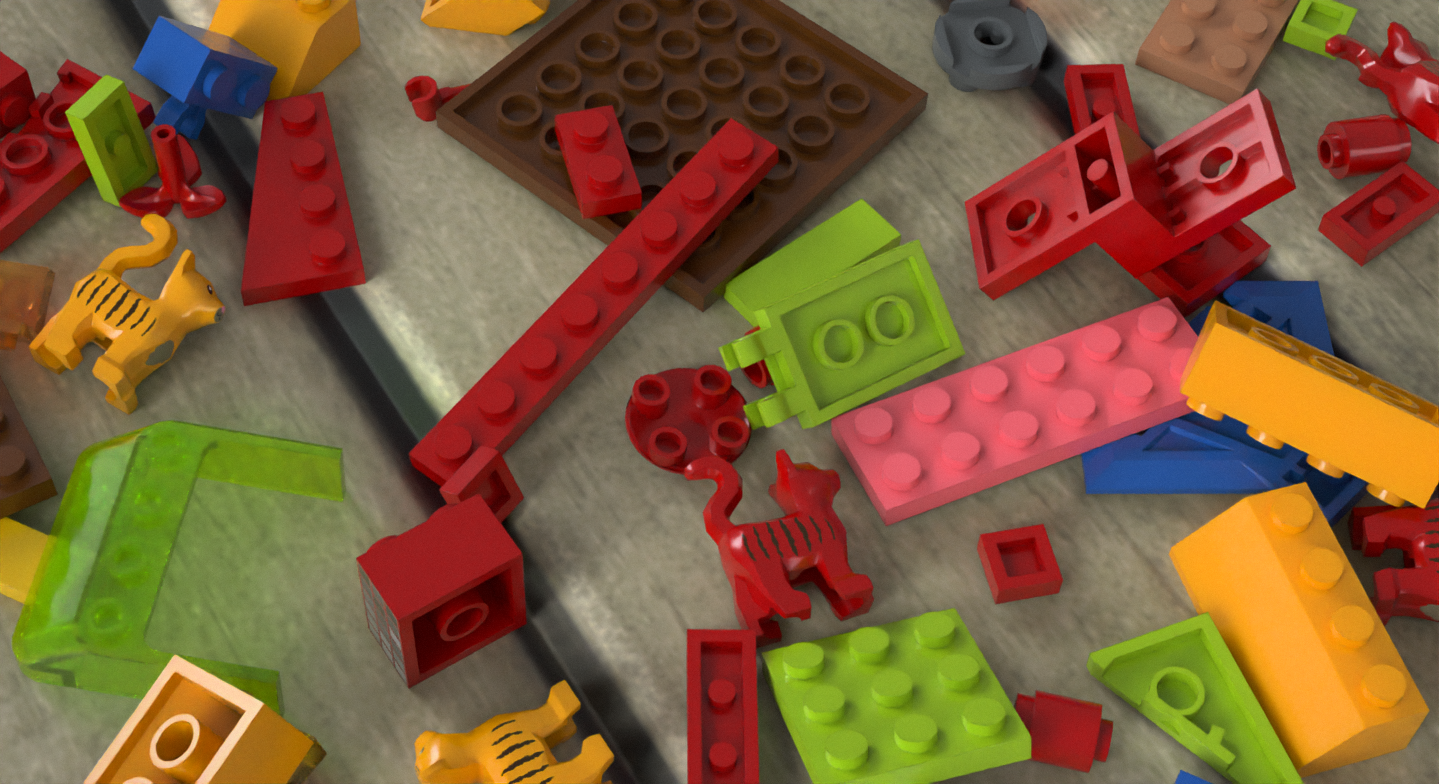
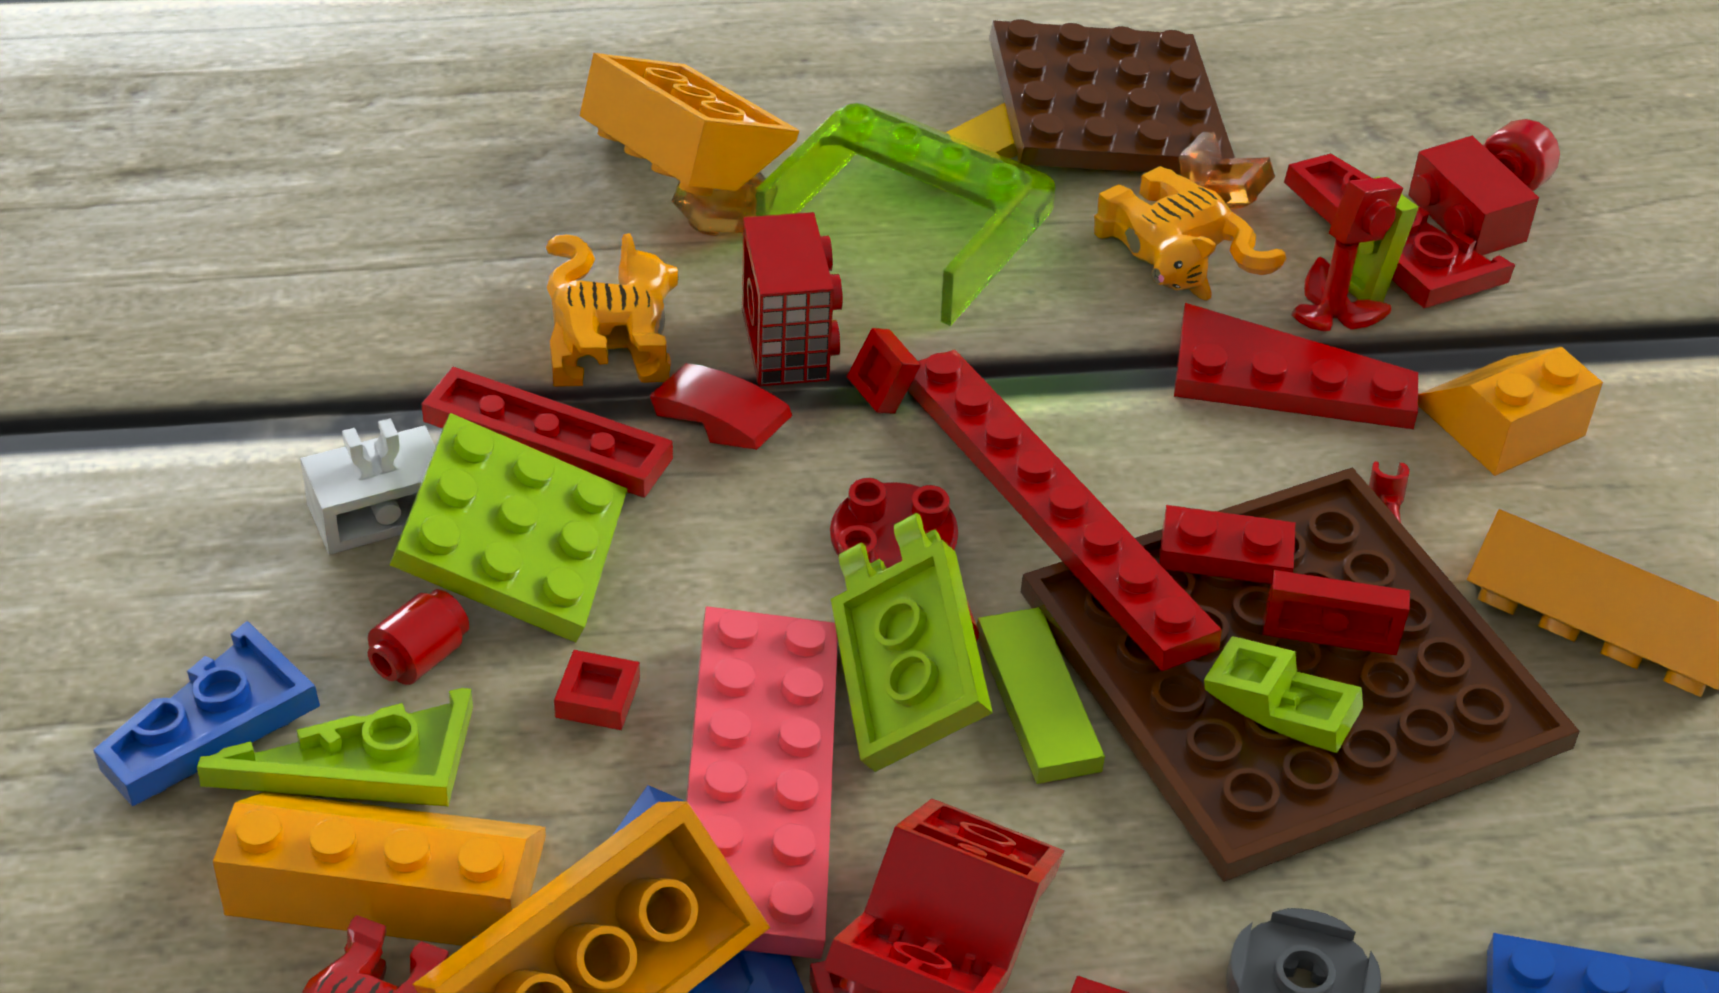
camera: 115 degrees right, 10 degrees down
(136, 106) = (1366, 210): none -> red plate
(202, 74) = (1445, 311): blue brick -> none
(597, 624) = (728, 406): none -> red slope
(656, 78) = (1336, 612): none -> red plate
(751, 83) = (1267, 688): none -> lime slope
(779, 554) = (709, 531): red animal -> none

